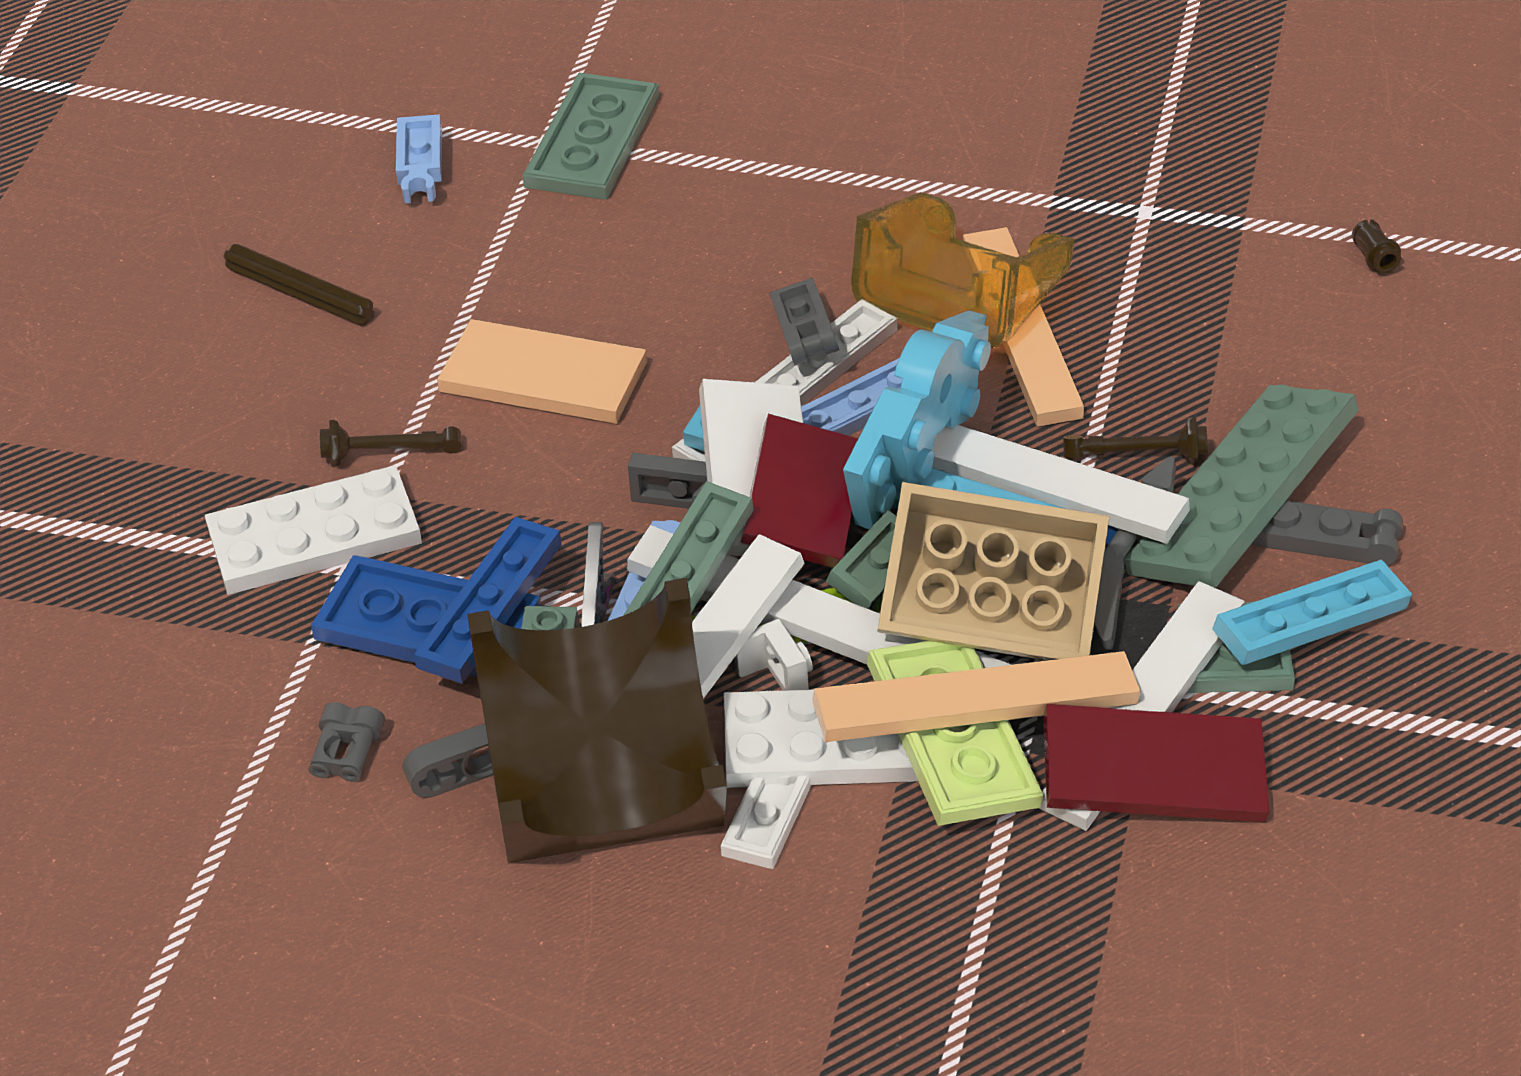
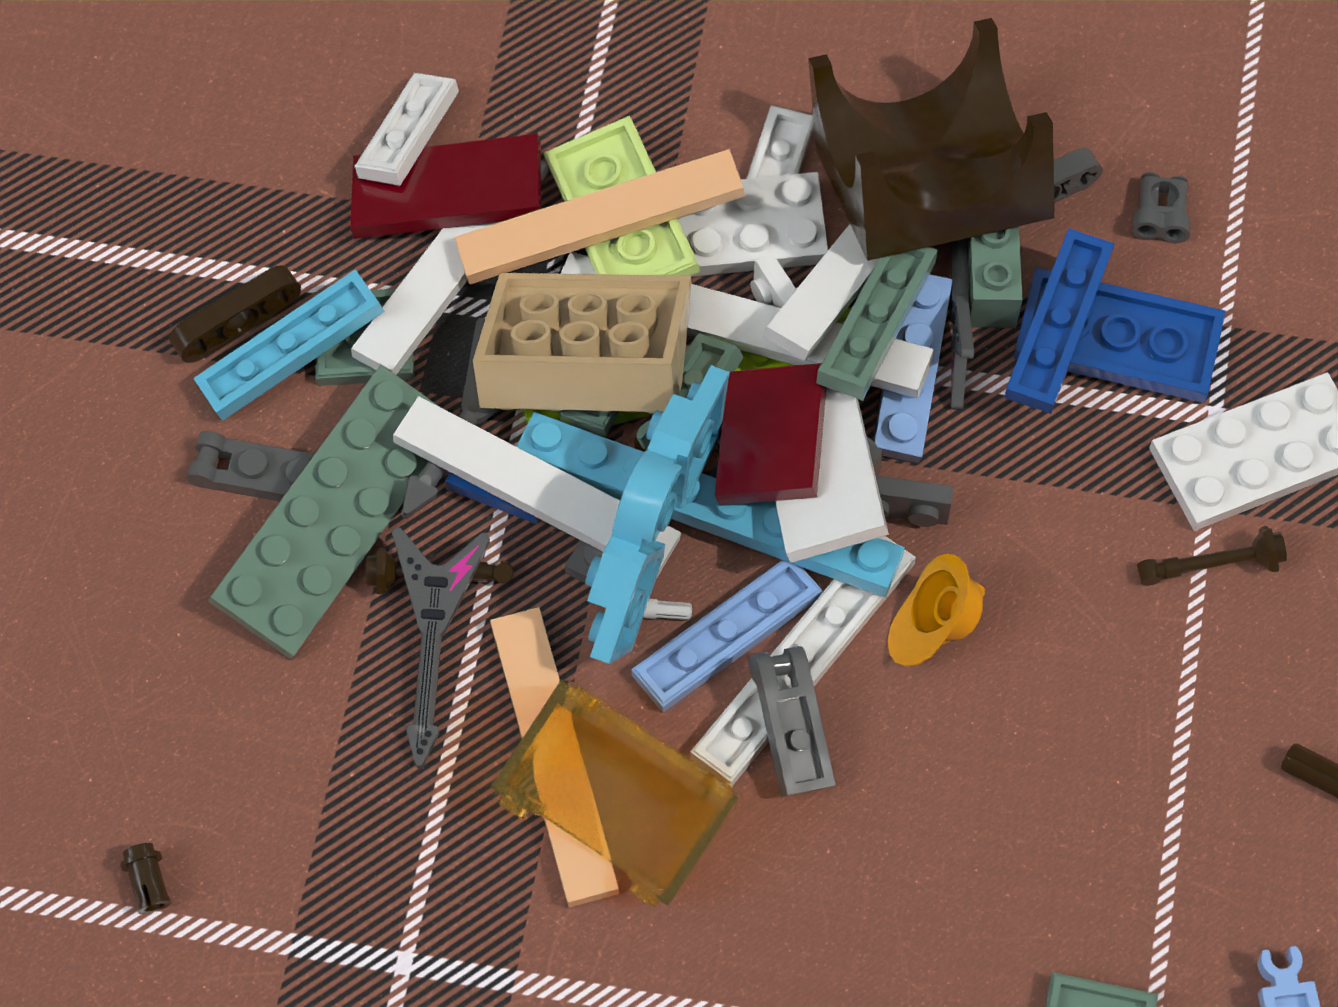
camera: 175 degrees right, 20 degrees up
(543, 371) = (1072, 673): light nougat tile -> none
(659, 391) = (937, 611): none -> light orange piece
(1137, 409) = (435, 599): none -> dark grey piece
(1206, 828) = (406, 129): none -> white tile
(1378, 654) = (235, 314): none -> dark brown beam

